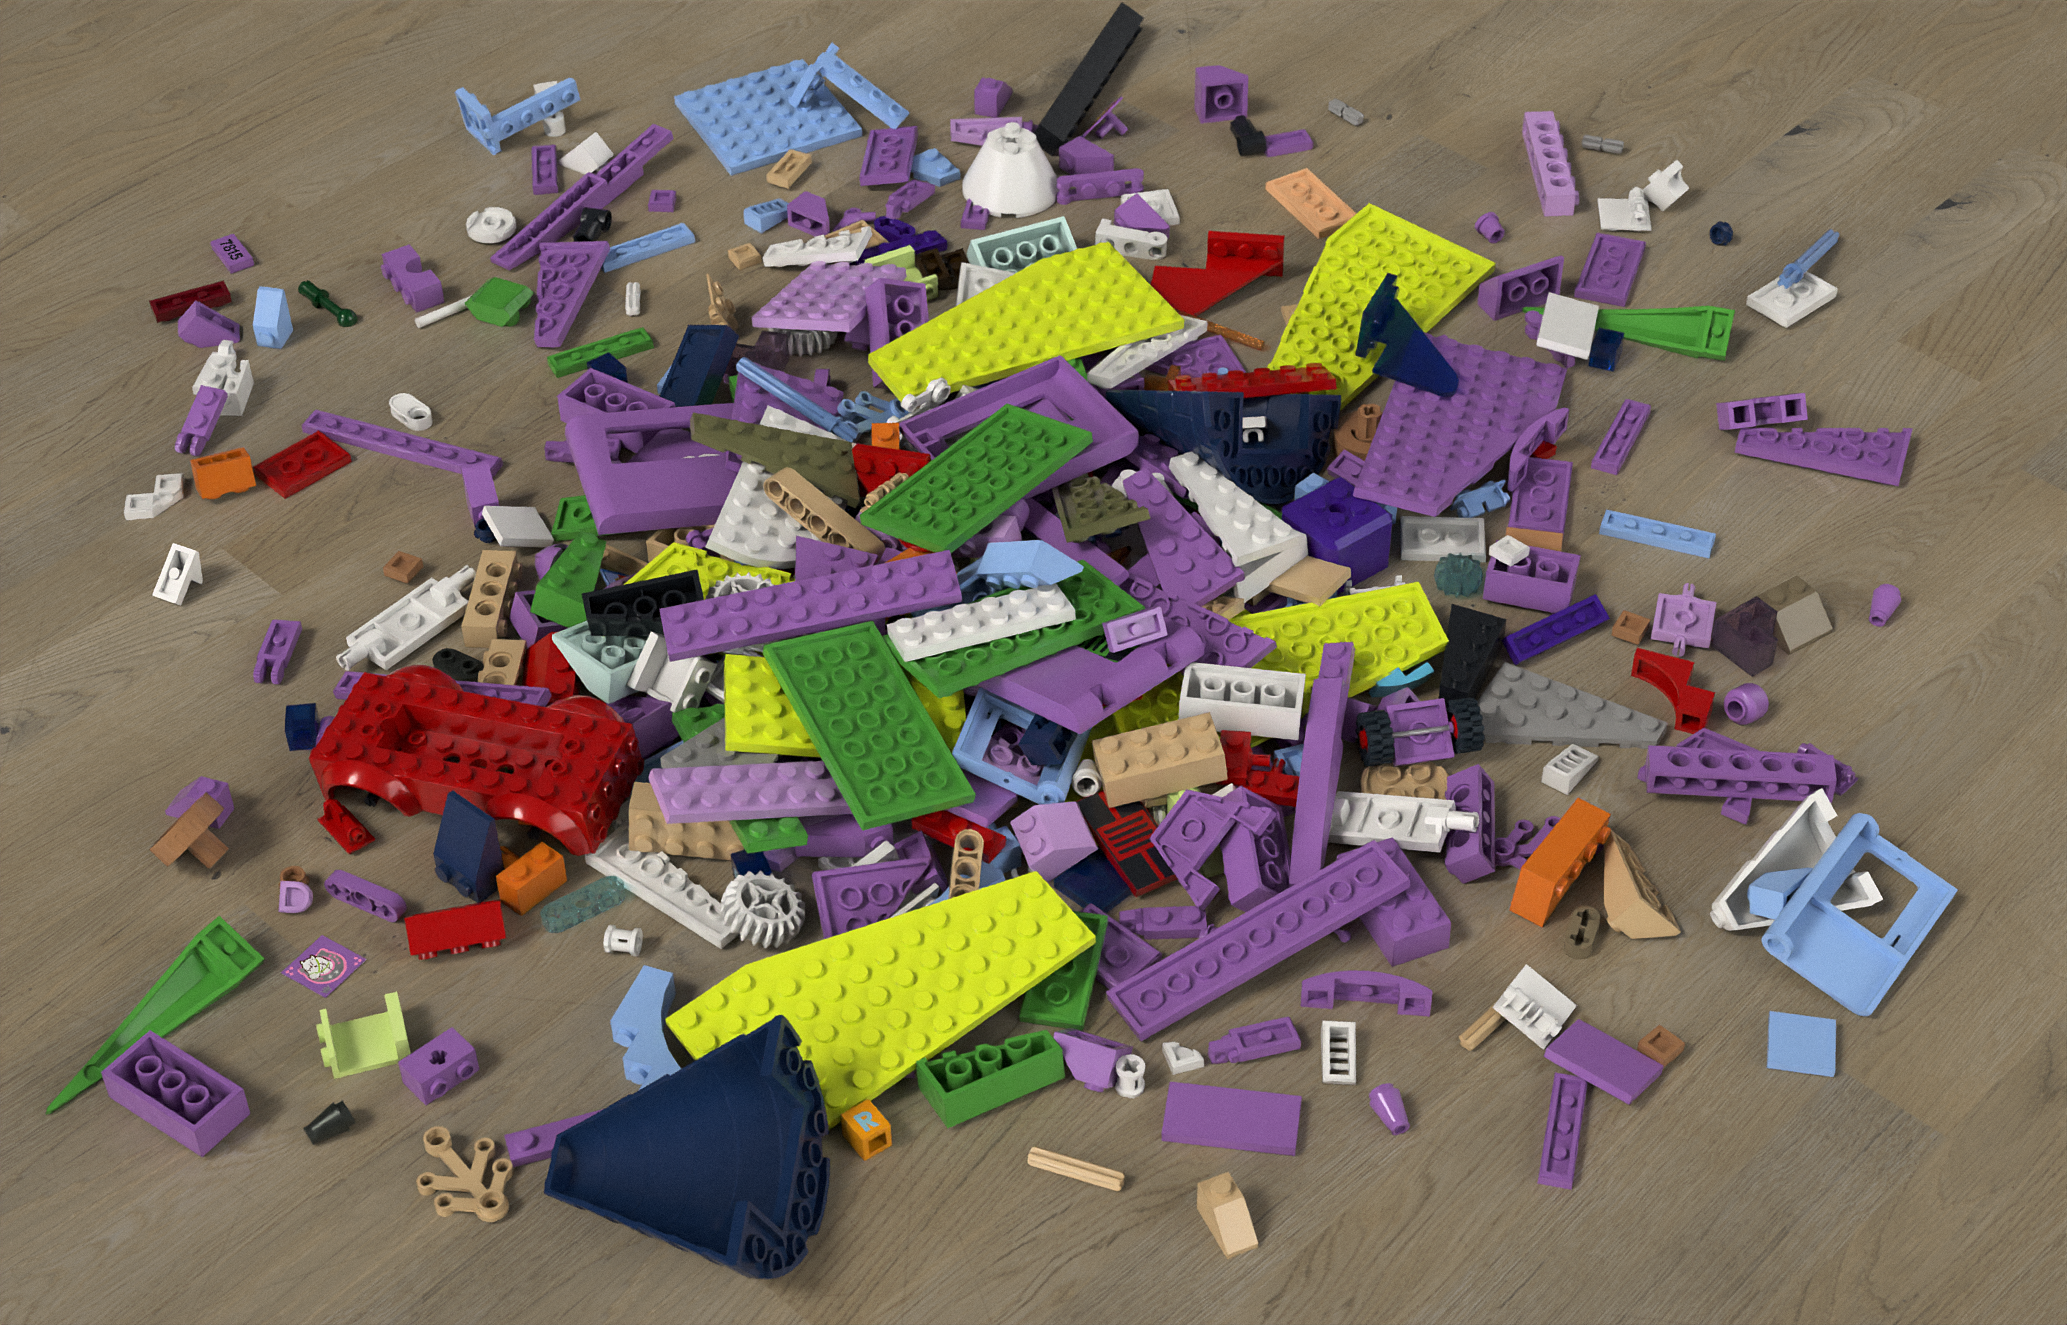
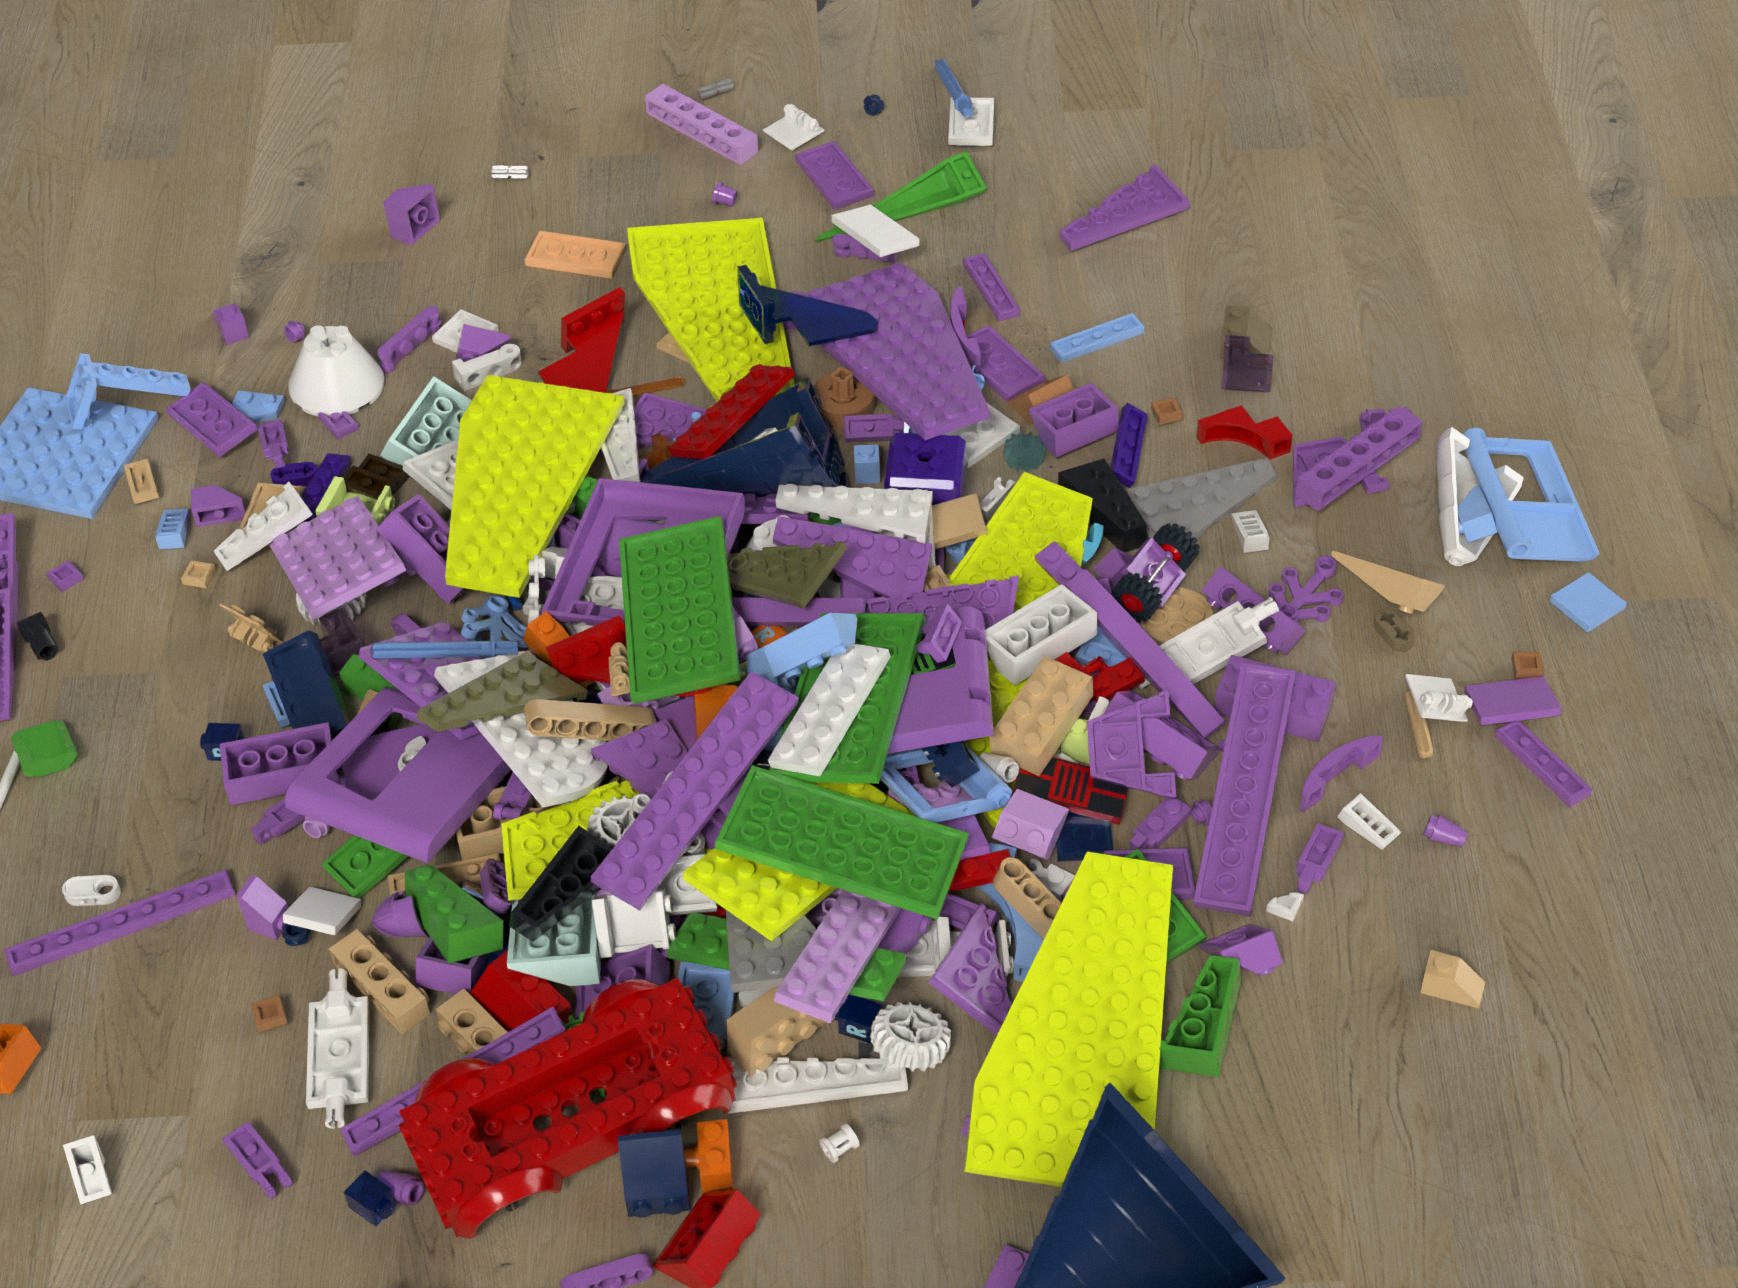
camera: 45 degrees left, 5 degrees up
(302, 464) = (56, 1000): red tile -> none
(344, 826) = (514, 1244): red hinge -> none
(457, 665) = (423, 1053): pearl dark grey plate -> none
(563, 284) = (81, 694): medium lavender wing -> none
(605, 901) = (773, 1155): clear light blue beam -> none
(618, 346) = (185, 730): bright green tile -> none
(632, 300) = (156, 670): white piece -> none
(641, 1026) = (977, 1206): light blue arch -> none
(648, 246) = (103, 623): light blue tile -> none
(854, 215) = (246, 486): medium lavender animal -> none
(866, 1129) = (1177, 1123): light orange brick -> none
(976, 130) = (265, 350): lavender wing -> none
(1076, 1168) = (1327, 1031): tan axle -> none
(1084, 157) = (372, 324): medium lavender slope -> none
(1086, 80) = (288, 259): black brick -> none
(1111, 121) = (344, 285): medium lavender shield -> none
(1134, 1071) = (1284, 938): white bush -> none
(1231, 1118) = (1366, 918): medium lavender tile -> none
(1247, 138) = (470, 235): black piece -> none
(1288, 143) = (496, 221): medium lavender tile -> none
(1509, 550) = (1050, 409): white tile -> none
(1521, 288) = (803, 224): medium lavender slope -> none
(1559, 861) = (1339, 593): orange wedge -> none
(1606, 349) = (915, 226): clear blue brick -> none
(1666, 186) = (803, 92): white brick -> none
(1683, 620) = (1189, 383): lavender plate -> none
(1746, 703) = (1295, 411): medium lavender head -> none
(1762, 411) = (1052, 216): medium lavender arch -> none
(1884, 603) = (1282, 290): medium lavender cone -> none

